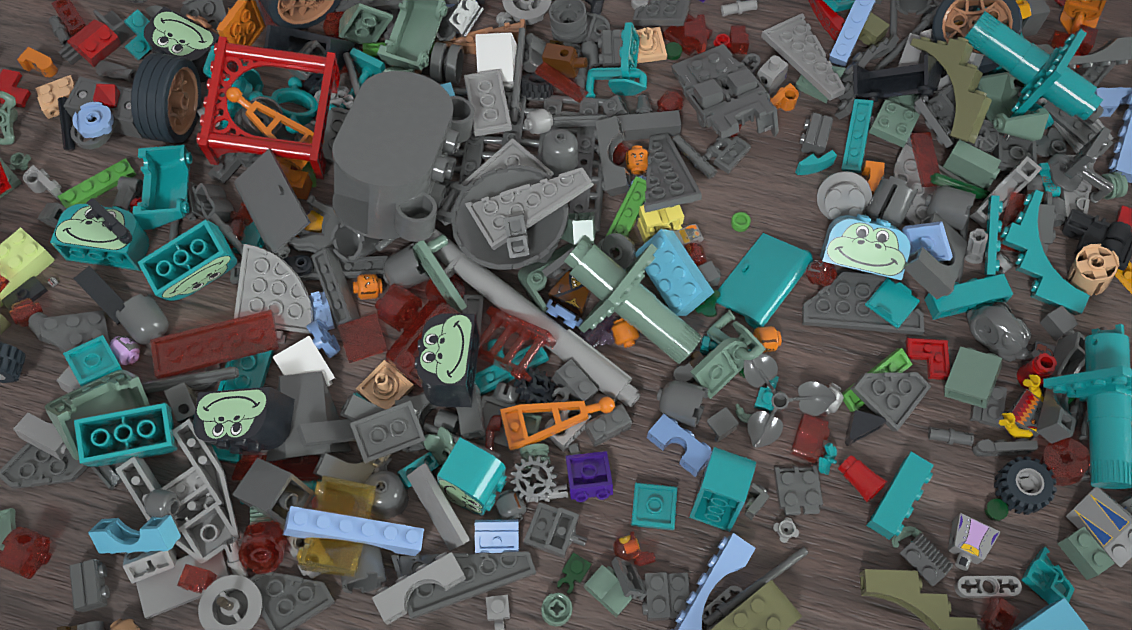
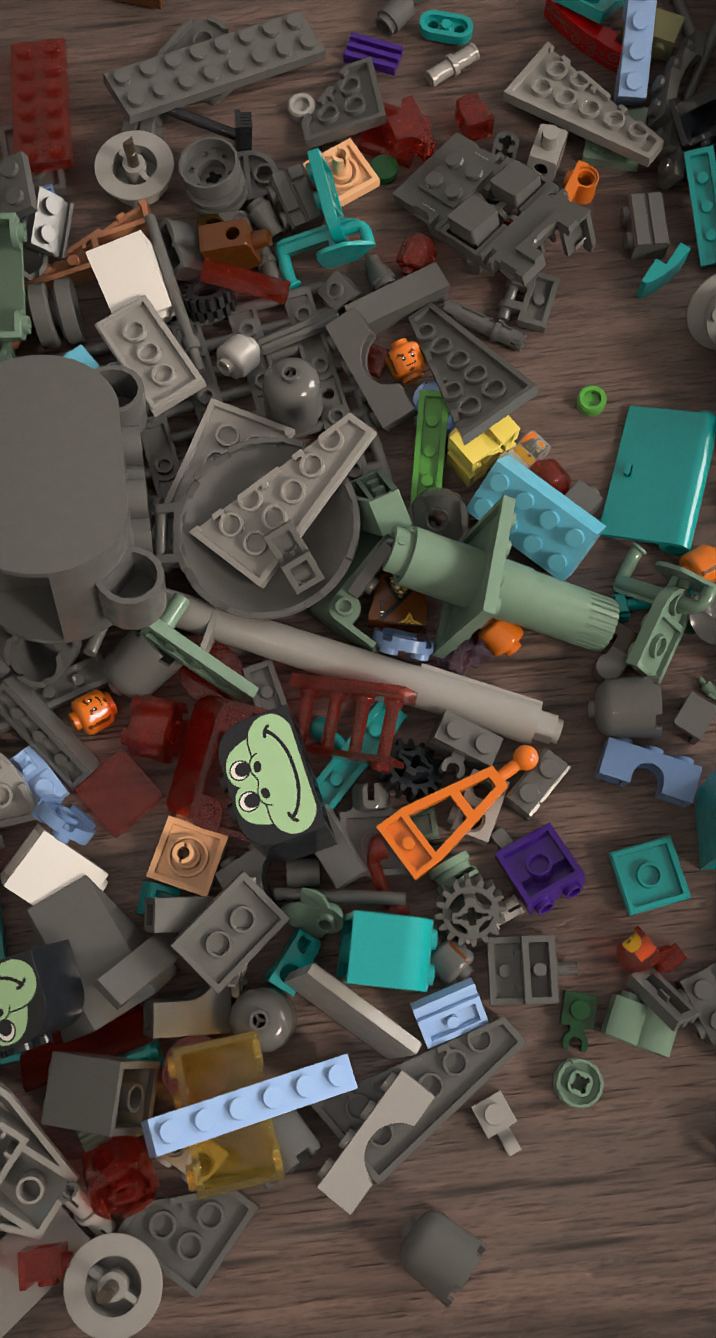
camera: 20 degrees left, 10 degrees up
(503, 17) = (109, 208): light grey plate -> none
(710, 304) = (601, 551): dark green piece -> none
(722, 38) = (449, 123): red plate -> none

